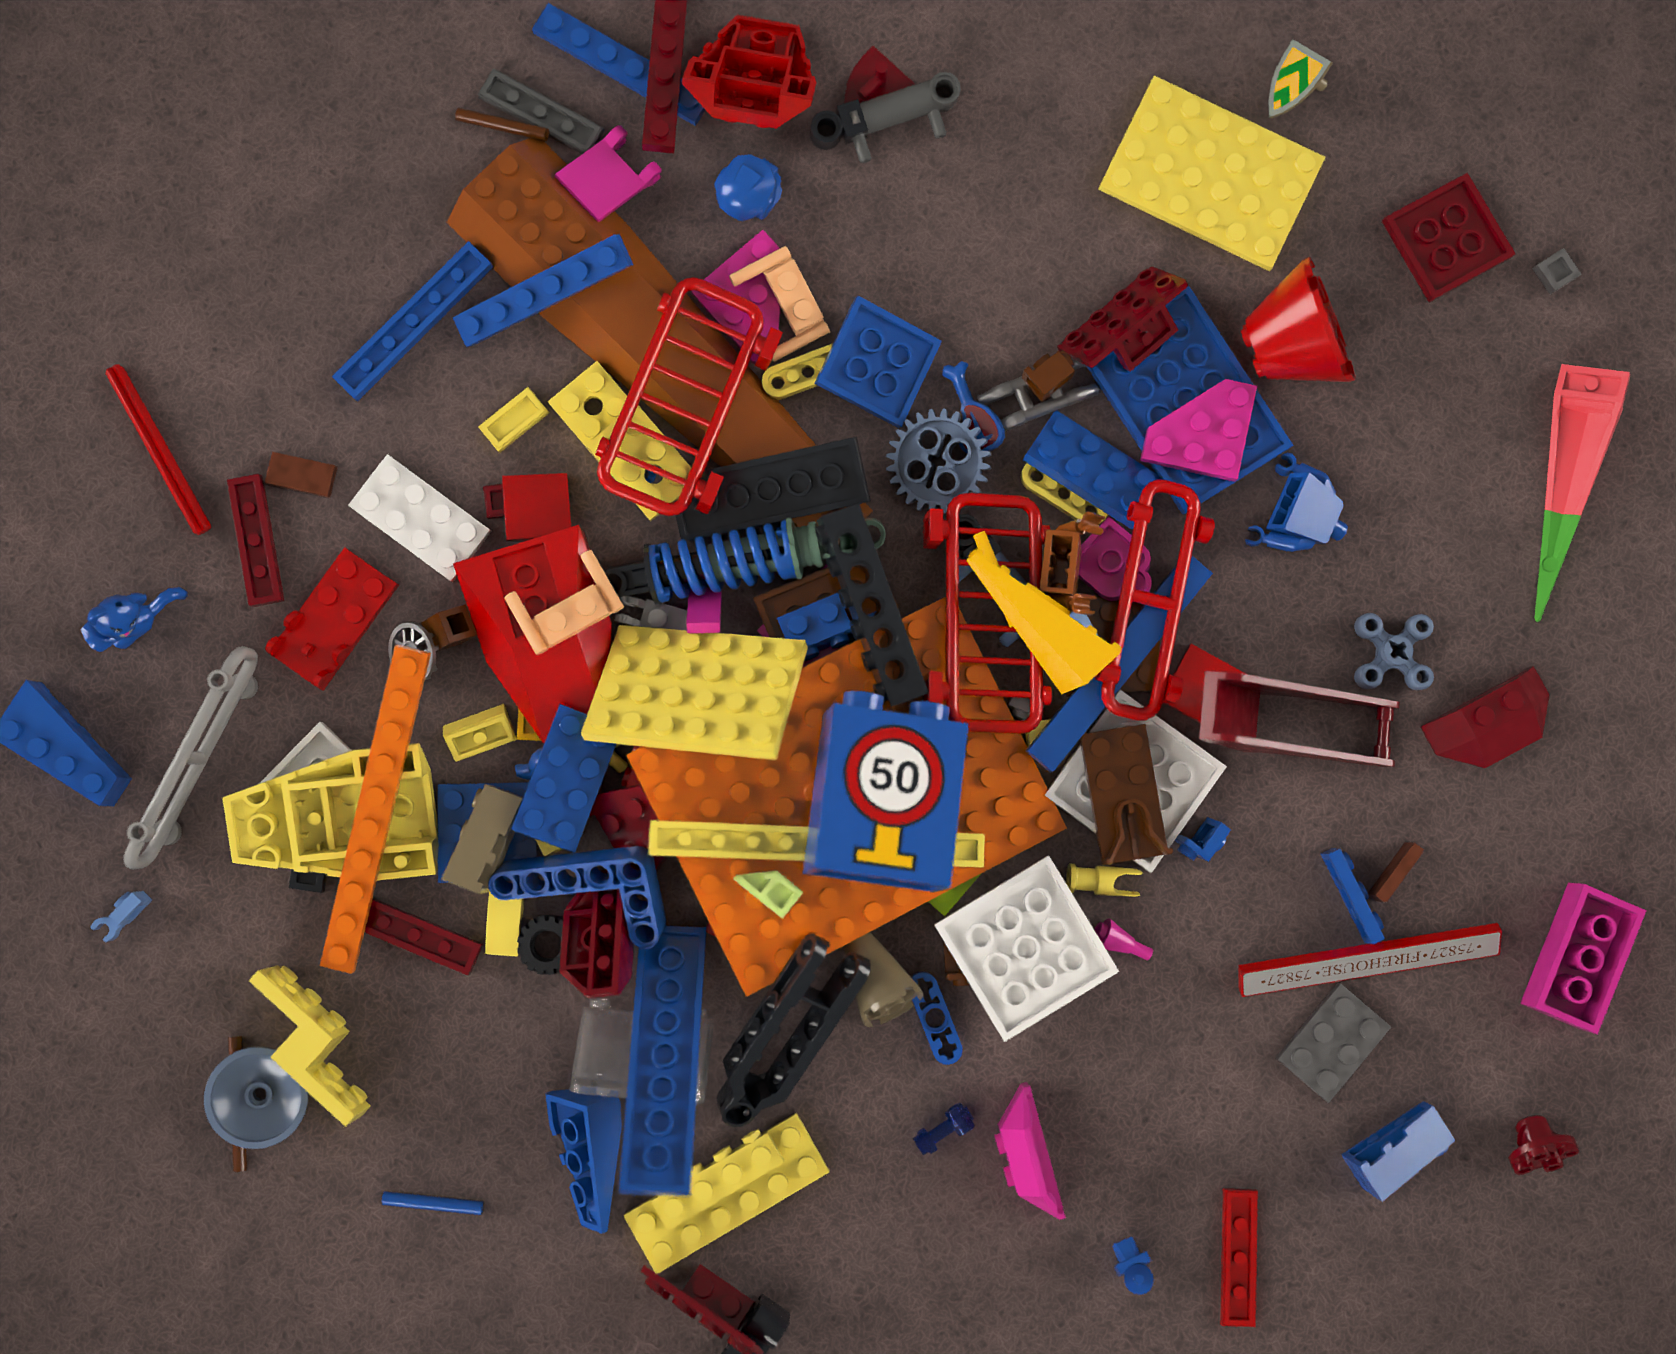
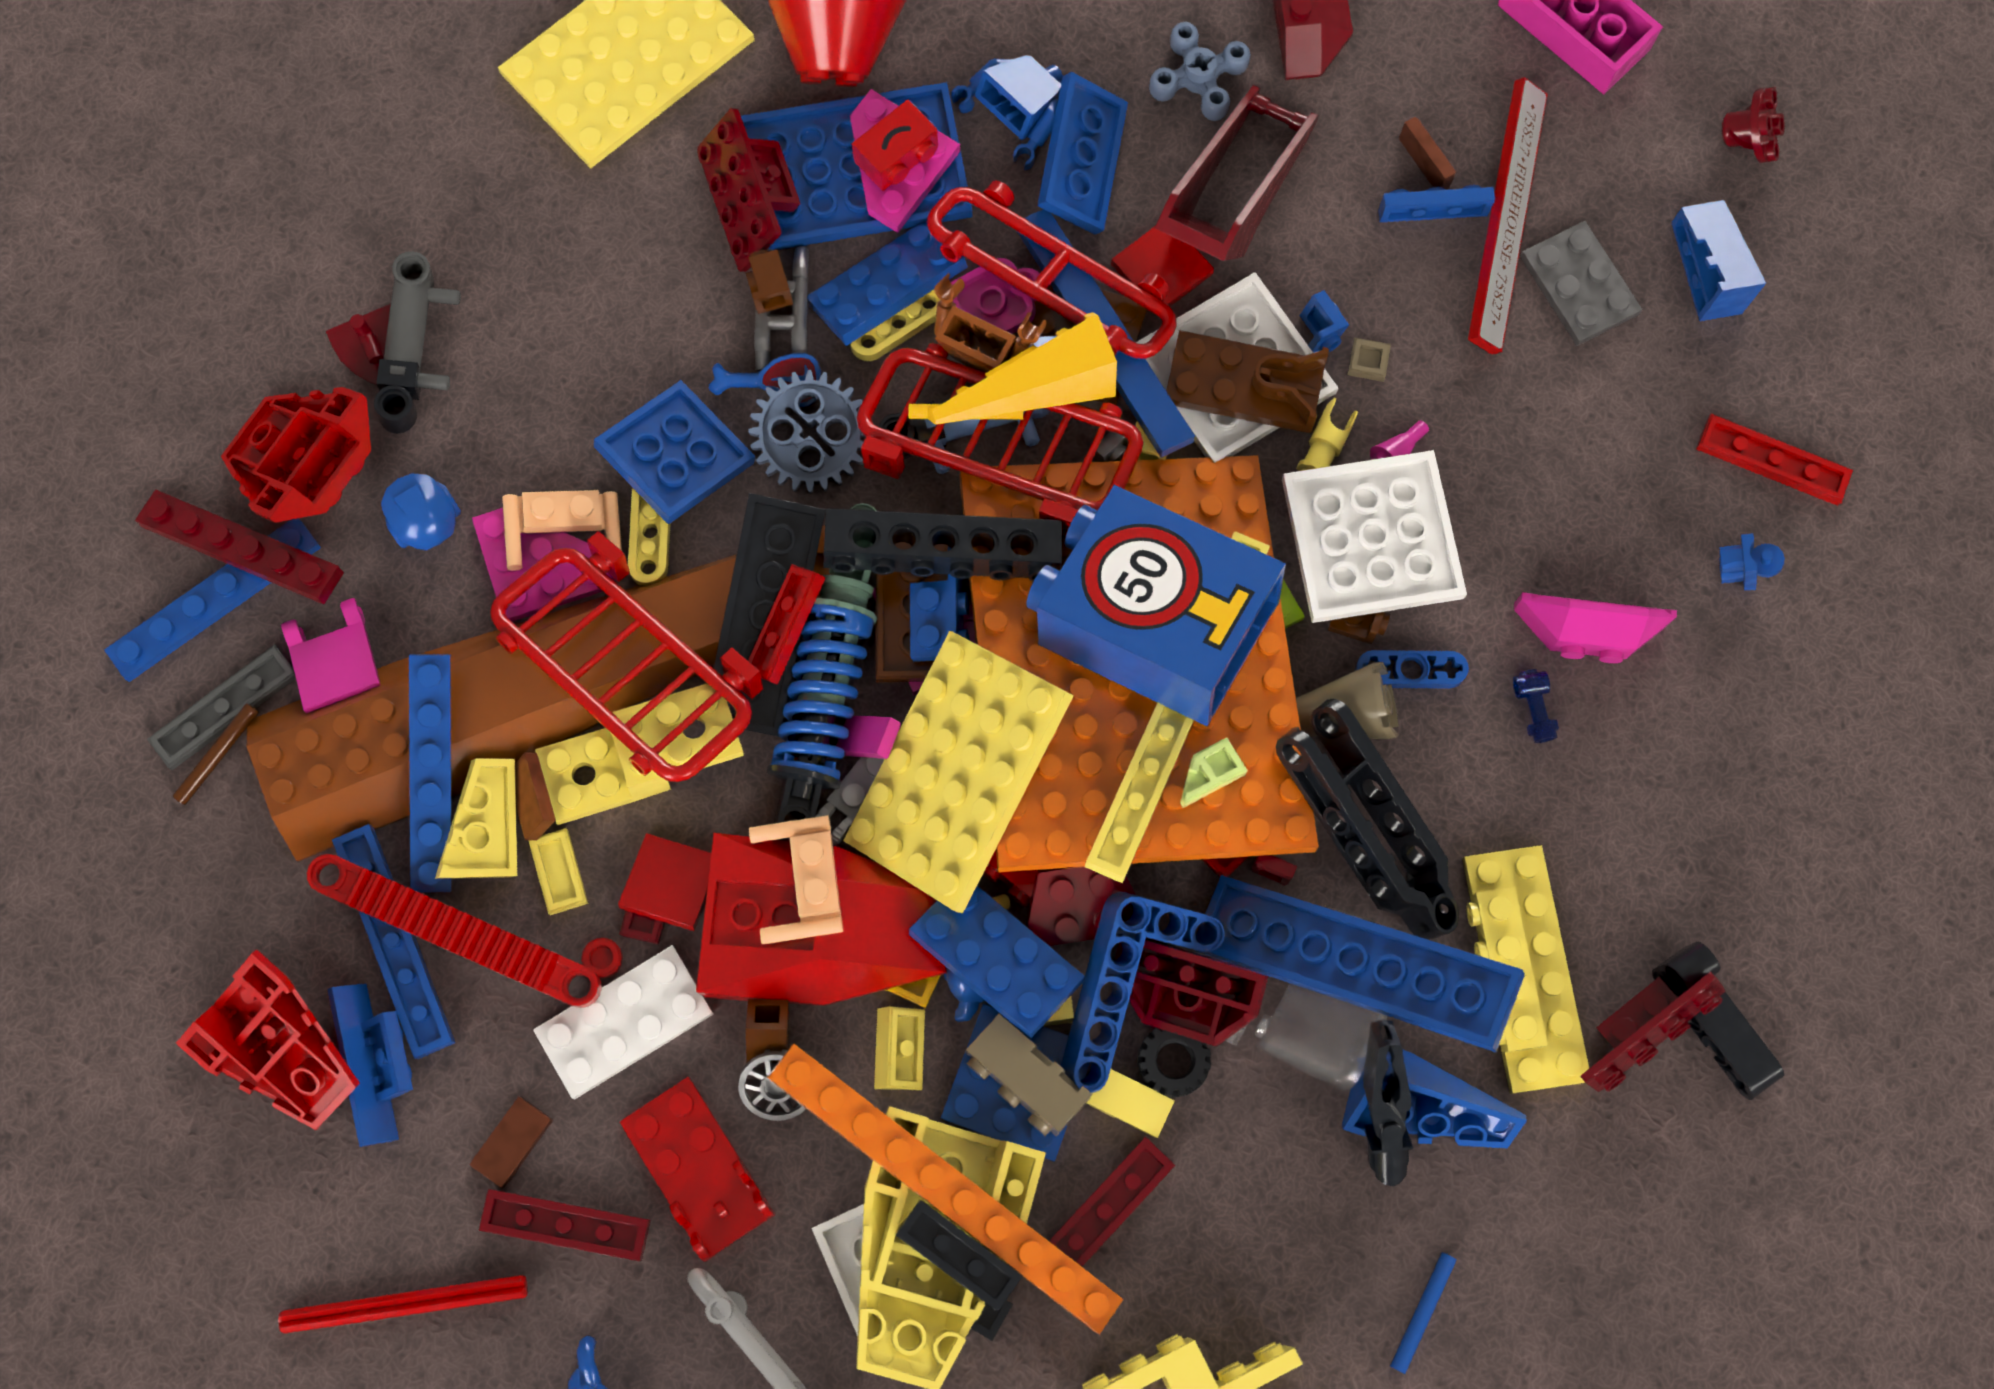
camera: 65 degrees left, 10 degrees down
(303, 269) = (271, 1044): none -> red wedge
(317, 346) = (376, 1057): none -> blue bracket
(330, 839) = (958, 1255): none -> black plate
(433, 363) = (454, 930): none -> red gear
(461, 481) = (602, 957): none -> red tile
(523, 349) = (484, 824): none -> light yellow wing
(559, 374) = (532, 797): none -> copper tile
(562, 1123) = (1388, 1107): none -> black arm
(725, 971) = (1274, 869): none -> dark red tile
(762, 509) = (785, 622): none -> red tile
(1190, 888) = (1369, 359): none -> dark tan tile
(1207, 428) = (895, 145): none -> red brick
(1274, 583) = (1082, 153): none -> blue plate

